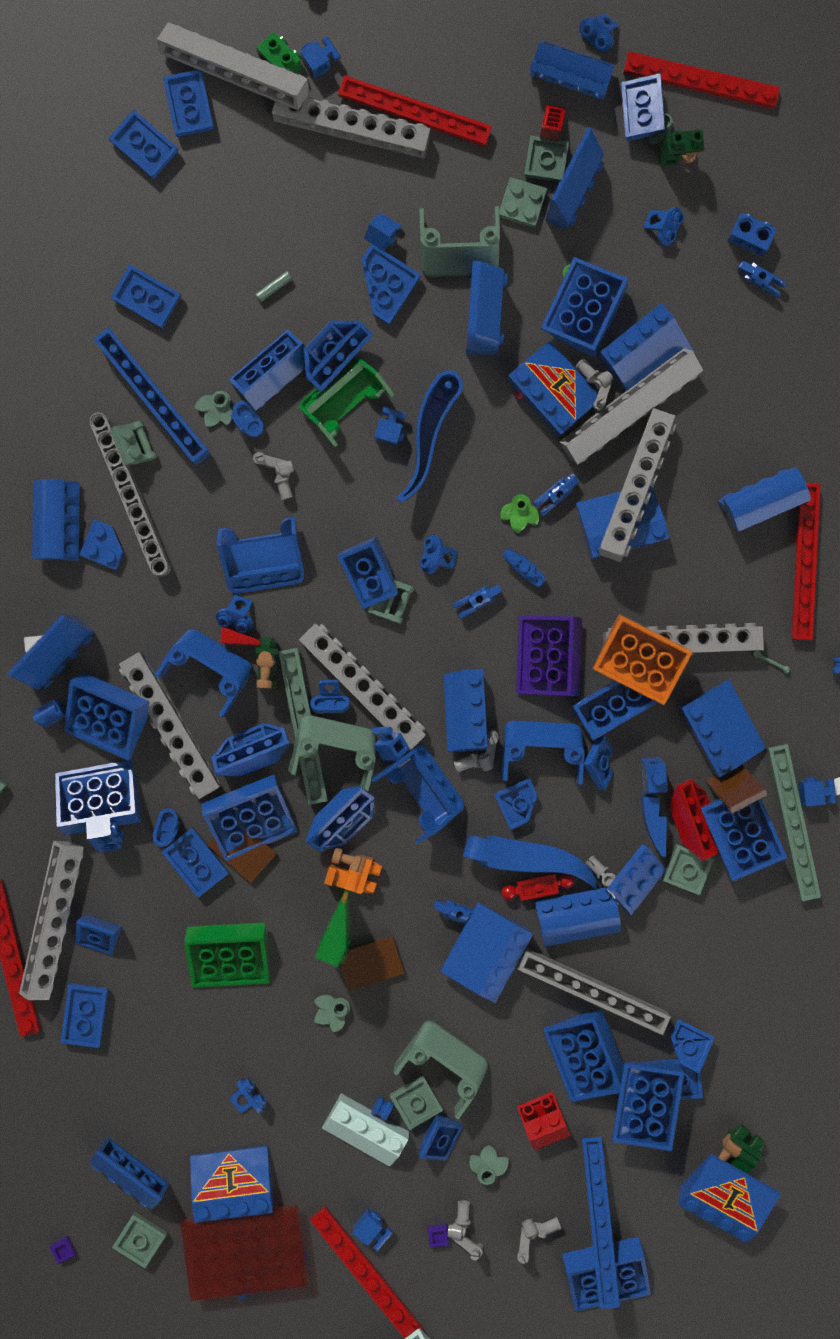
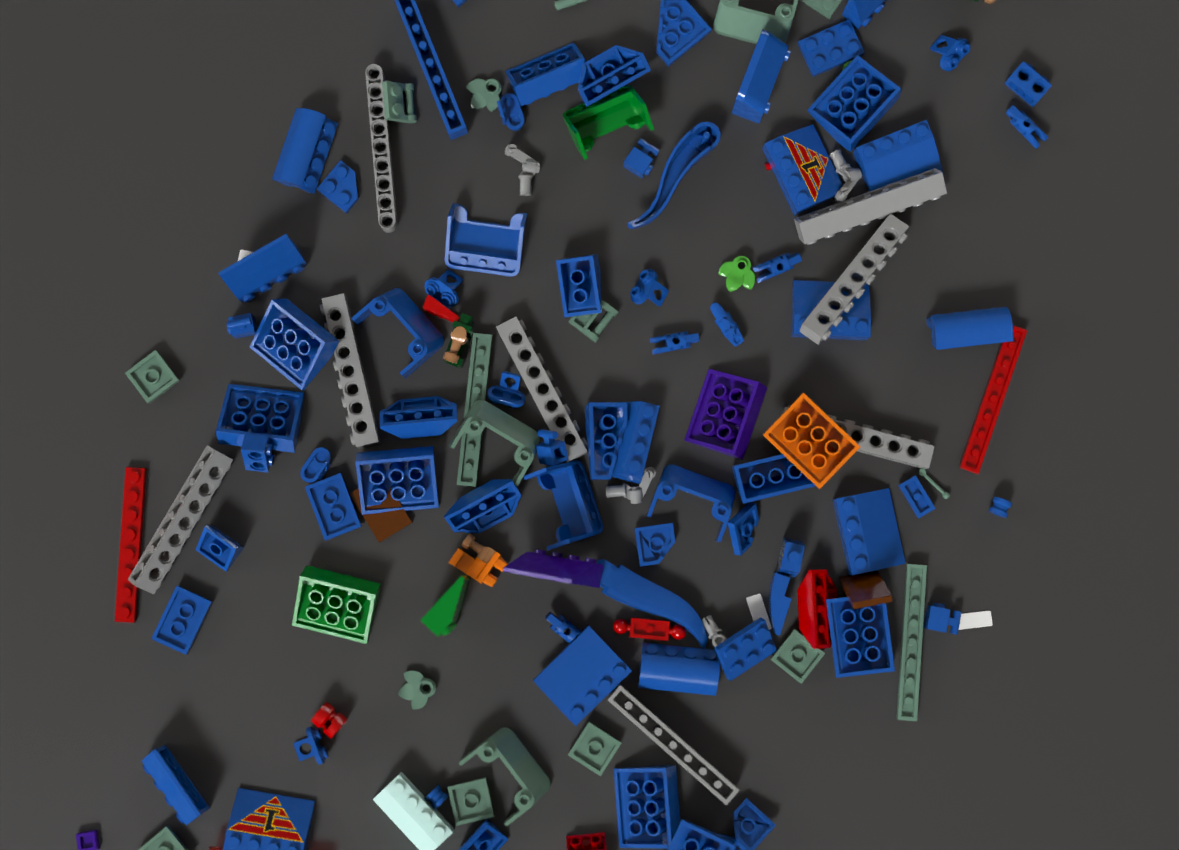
camera: 15 degrees right, 5 degrees down
(256, 1068) = (321, 719): none -> red wheel
(371, 963) = (468, 654): reddish brown tile -> none
(431, 861) = (557, 568): none -> dark purple slope
(437, 712) = (604, 433): none -> blue wedge
(519, 1016) = (594, 748): none -> sand green plate
(545, 257) = (830, 48): none -> blue plate
(636, 835) = (758, 609): none -> white sticker
(758, 680) = (916, 496): none -> blue plate

